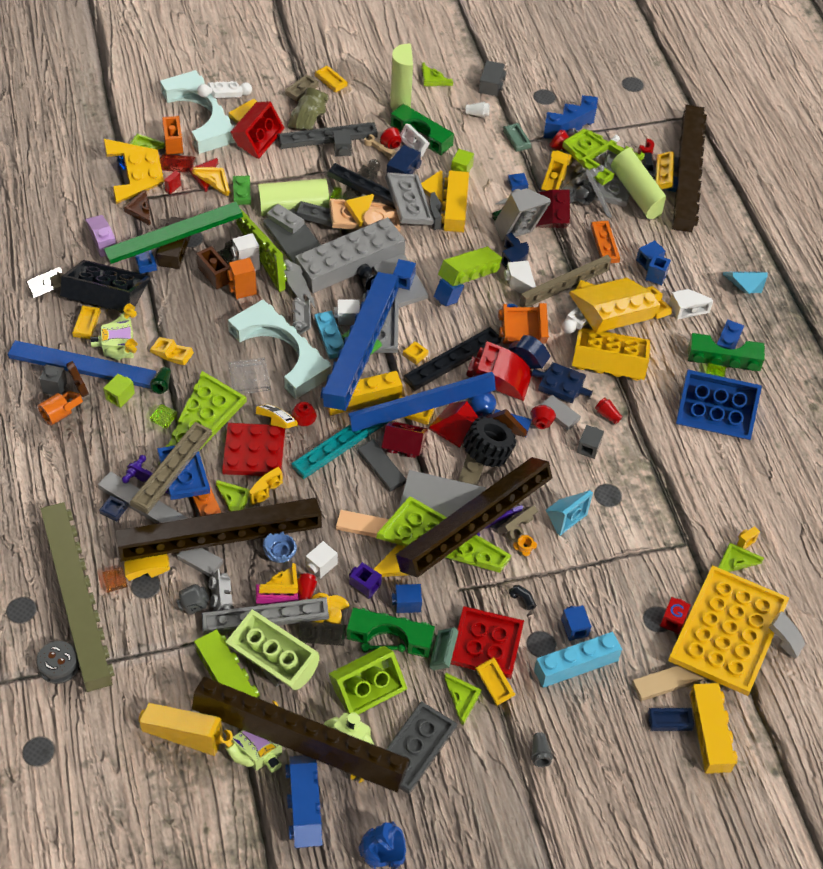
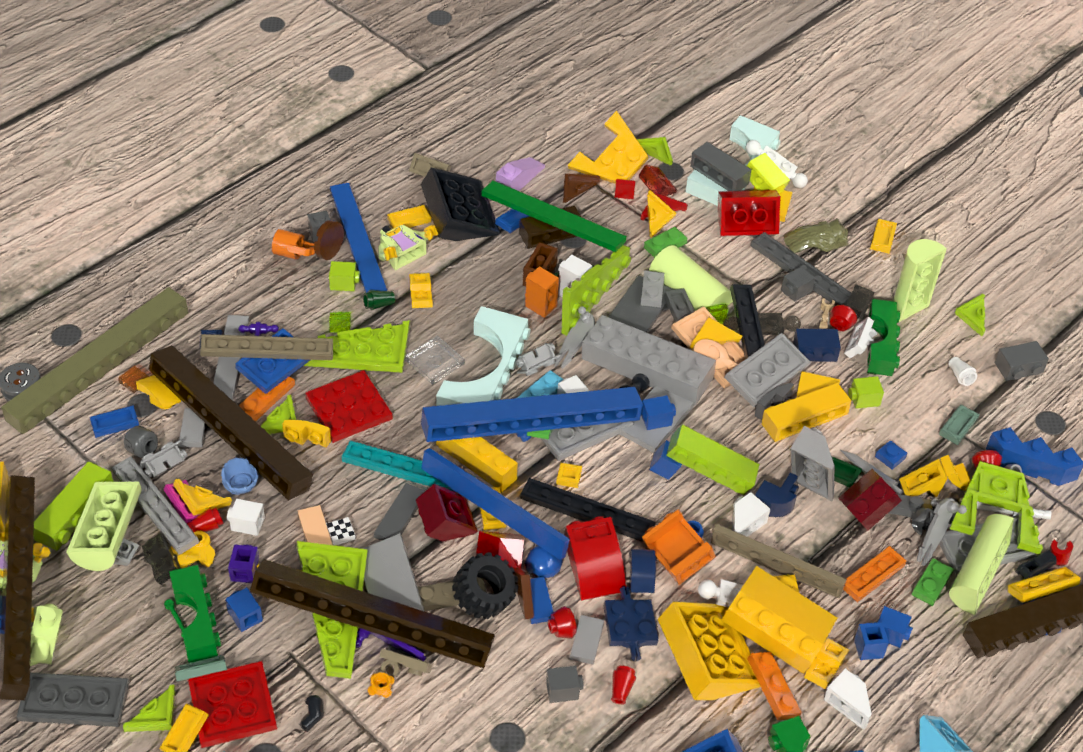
camera: 60 degrees right, 5 degrees down
(151, 611) = (114, 421): none -> blue tile
(172, 135) = (678, 158): orange brick -> none
(209, 117) = (720, 167): none -> dark grey brick
(235, 99) = (766, 174): none -> neon yellow brick
(278, 416) = (396, 401): yellow slope -> none
(298, 89) = (849, 219): dark tan plate -> none
(304, 414) = (412, 421): red cone -> none
(368, 680) = (125, 621): lime slope -> none
(373, 507) = (341, 531): none -> white tile
(385, 119) = (860, 300): none -> clear smoke brick
(569, 511) = (443, 703): medium azure slope -> none
(627, 219) = (932, 582): none -> bright green plate
(656, 335) = (774, 685): none -> orange plate

